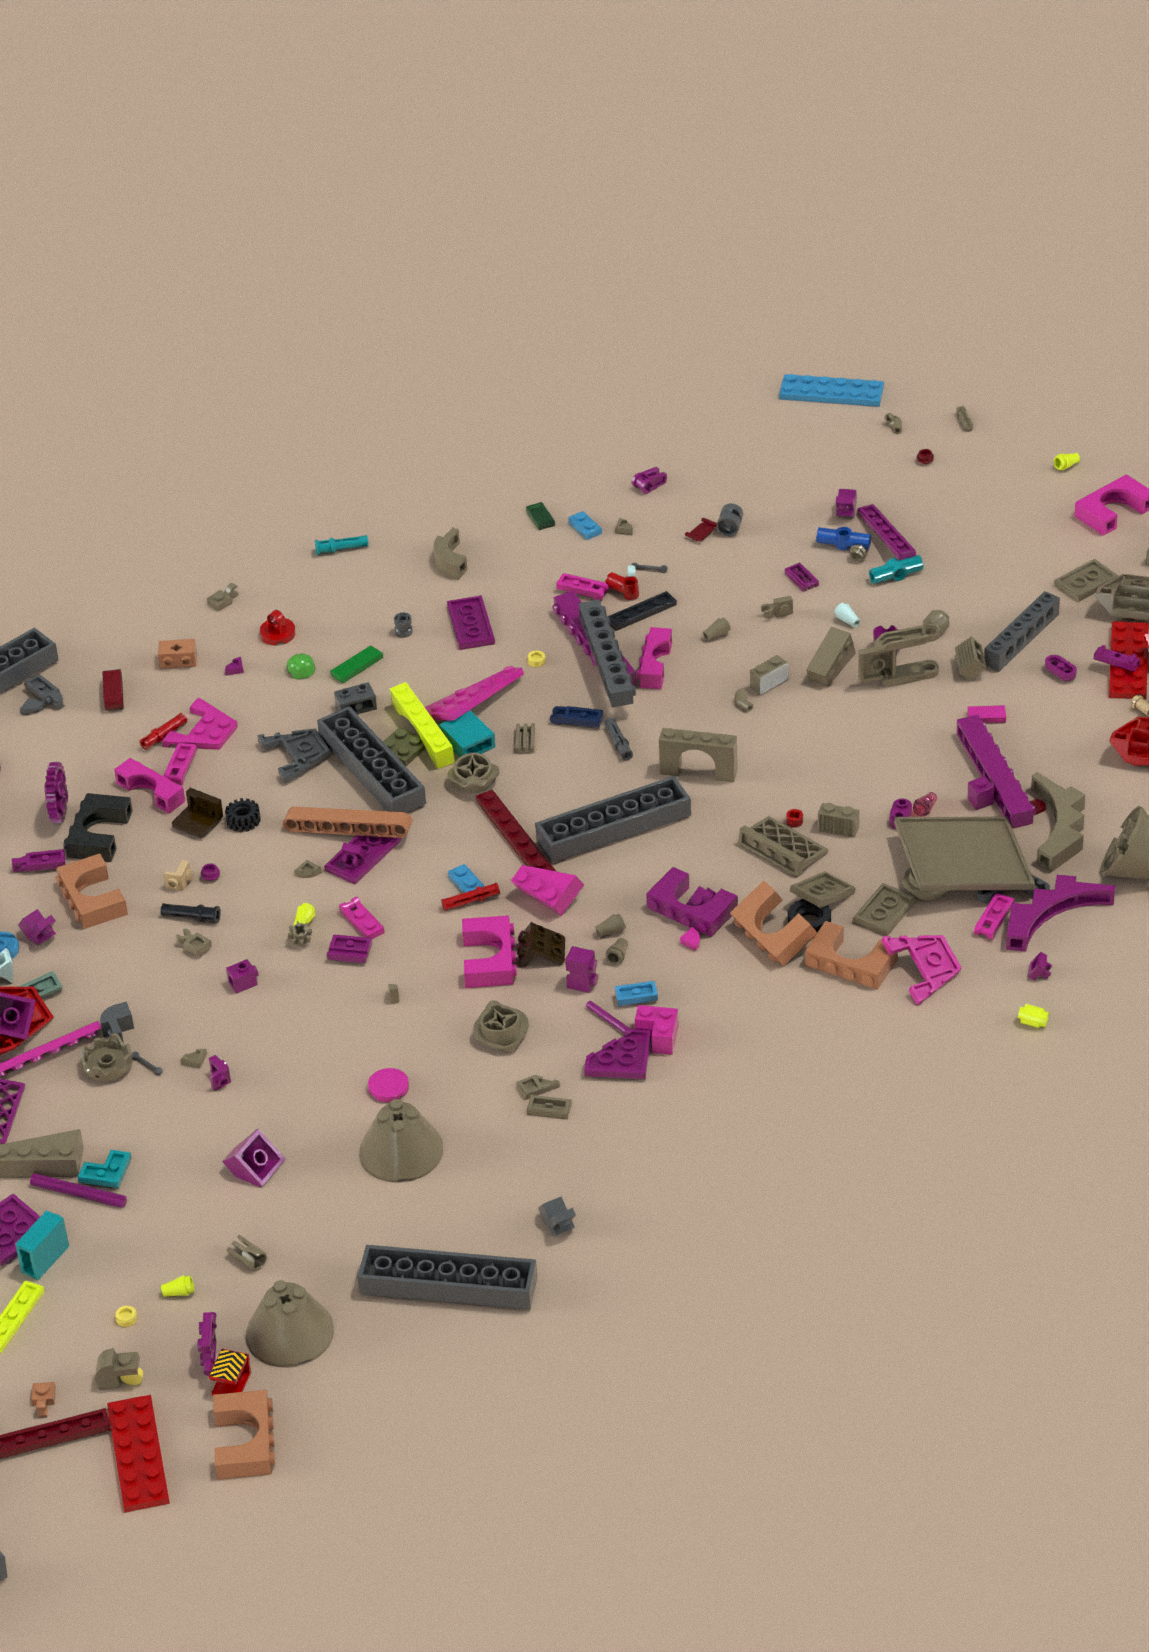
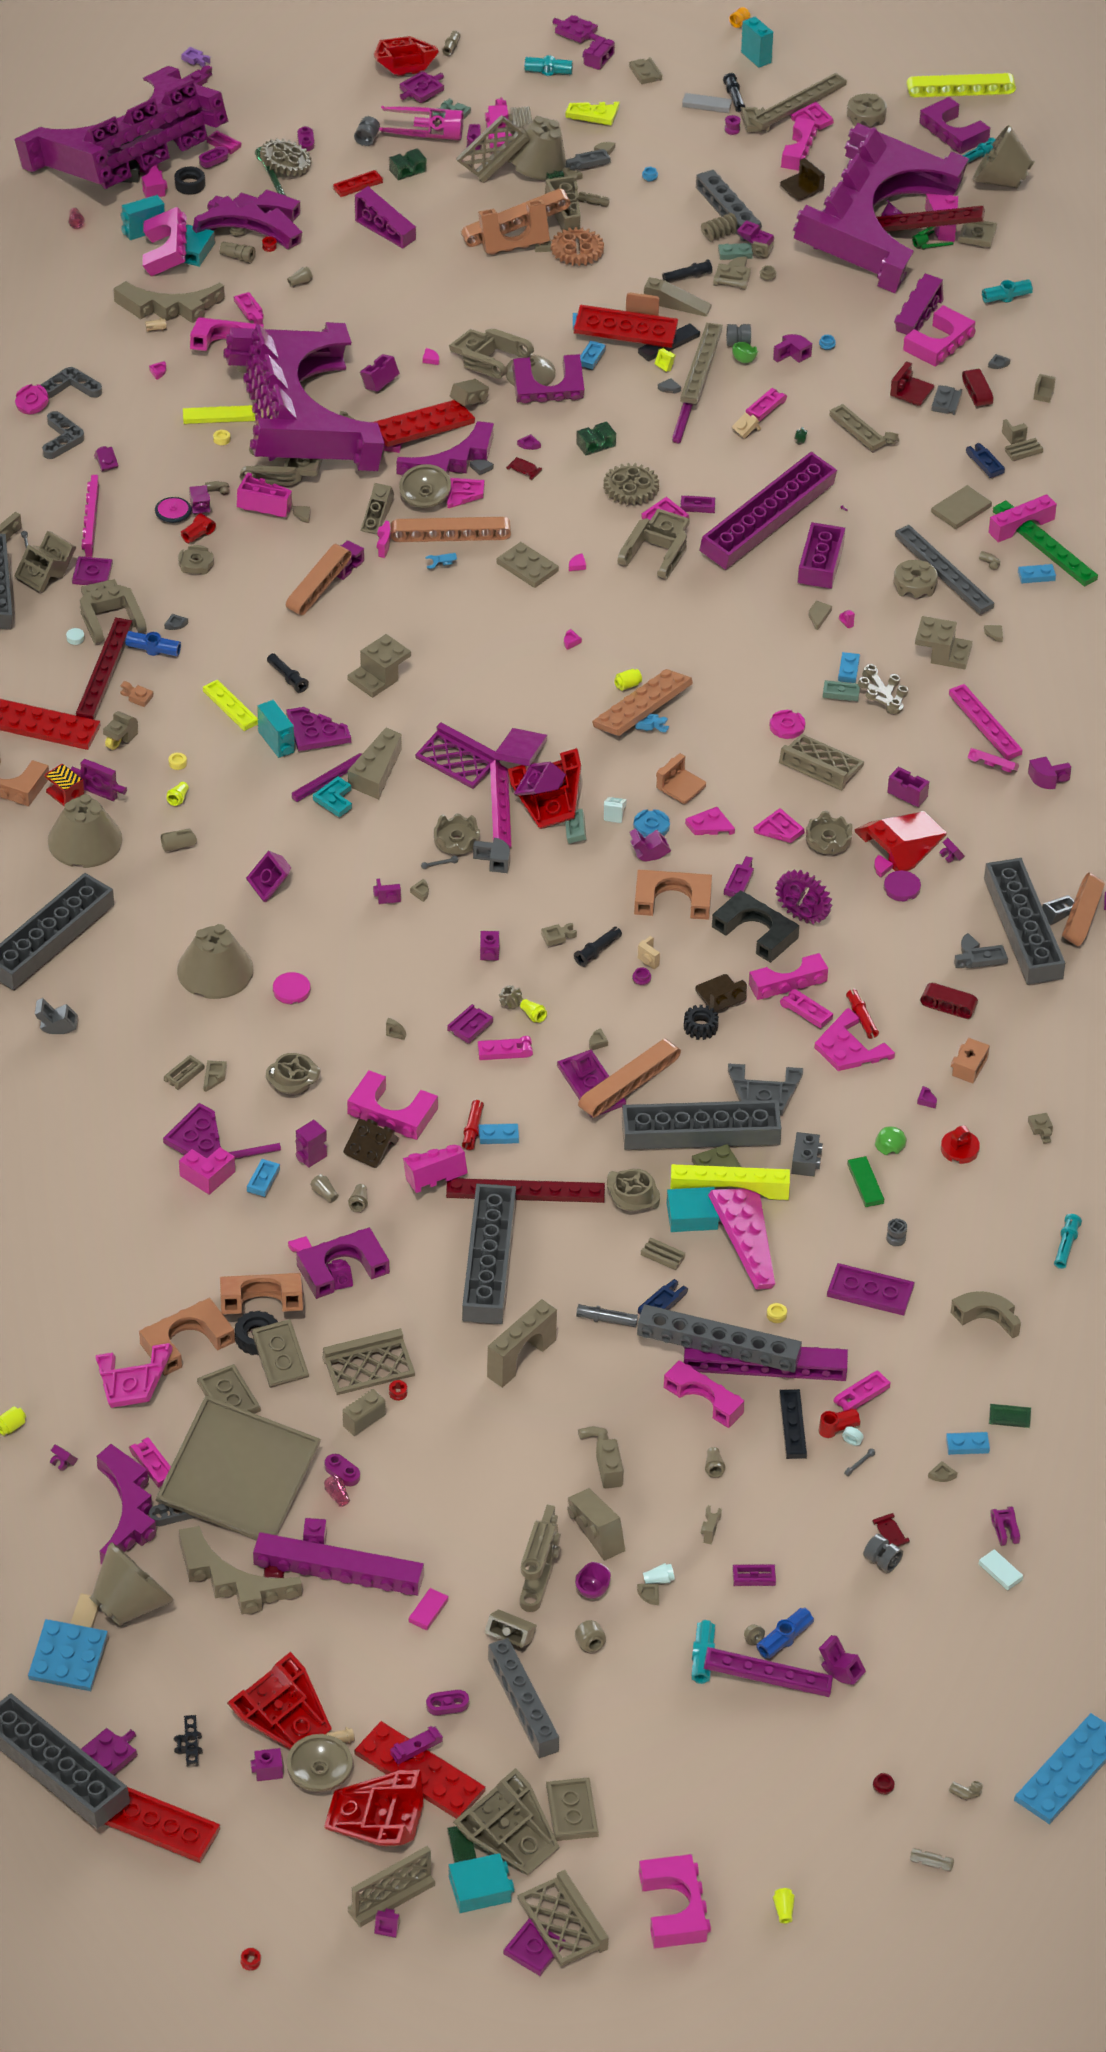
camera: 115 degrees right, 5 degrees up
(689, 472) = (1000, 1569): none -> light aqua tile
(866, 617) = (649, 1593): none -> dark tan tile

